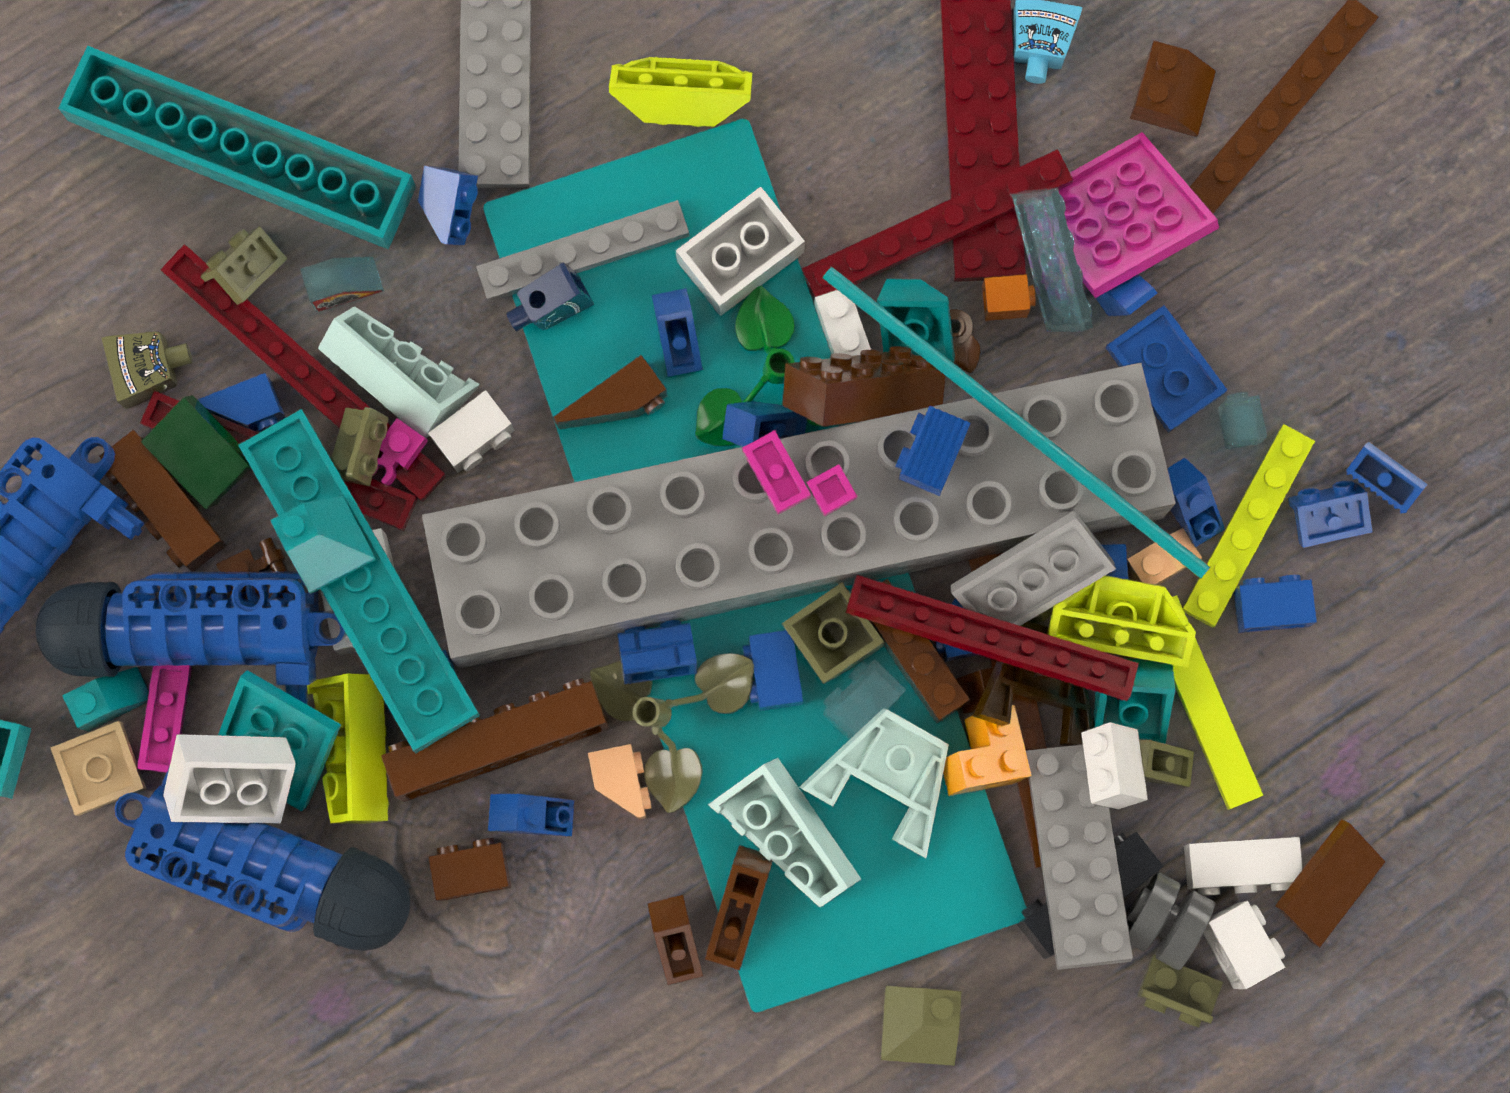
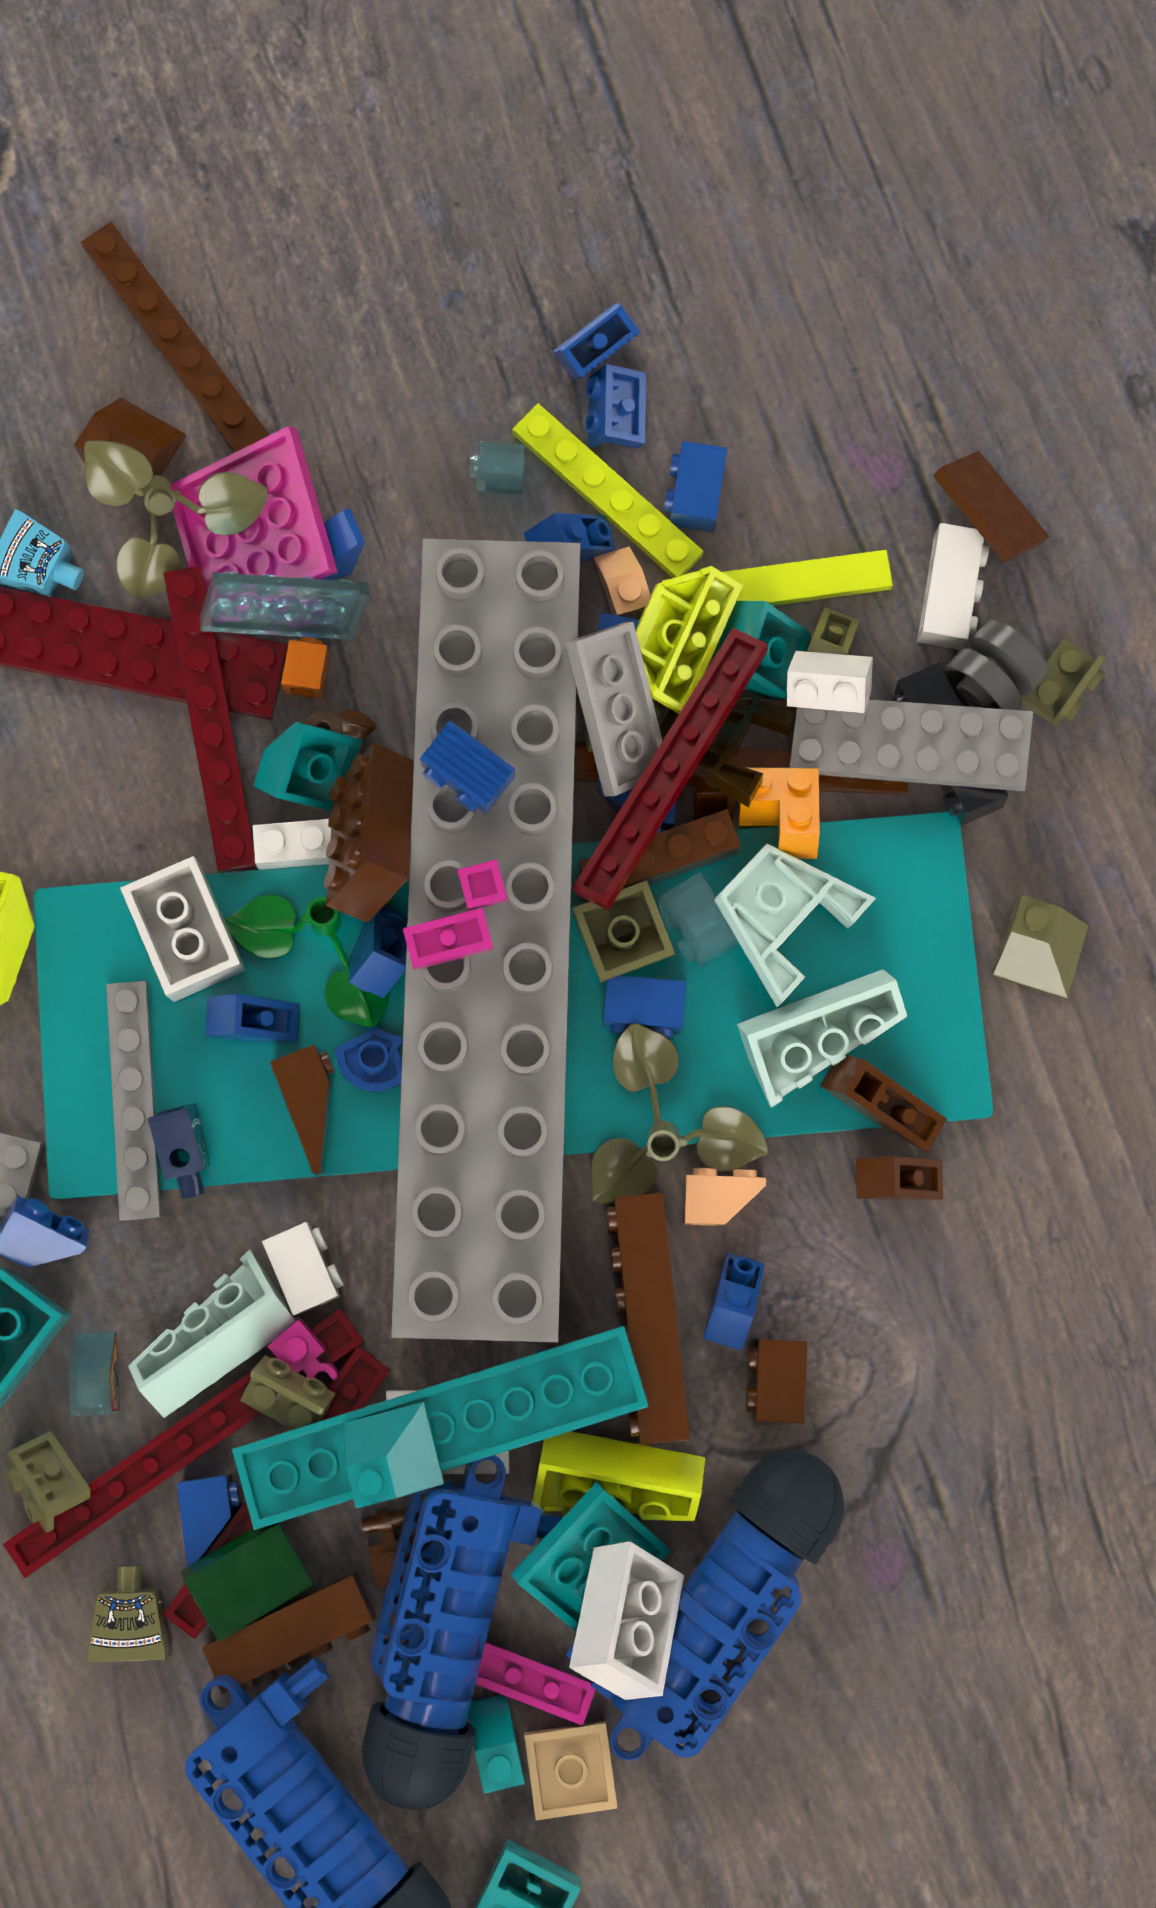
camera: 80 degrees left, 0 degrees up
(657, 652) = (595, 1123): blue brick -> none
(666, 440) = (371, 1060): none -> blue animal
(1016, 422) = (453, 680): teal piece -> none
(1128, 82) = (119, 471): none -> olive plant
(1174, 369) = (434, 512): blue plate -> none
(1243, 945) = (1039, 603): white brick -> none

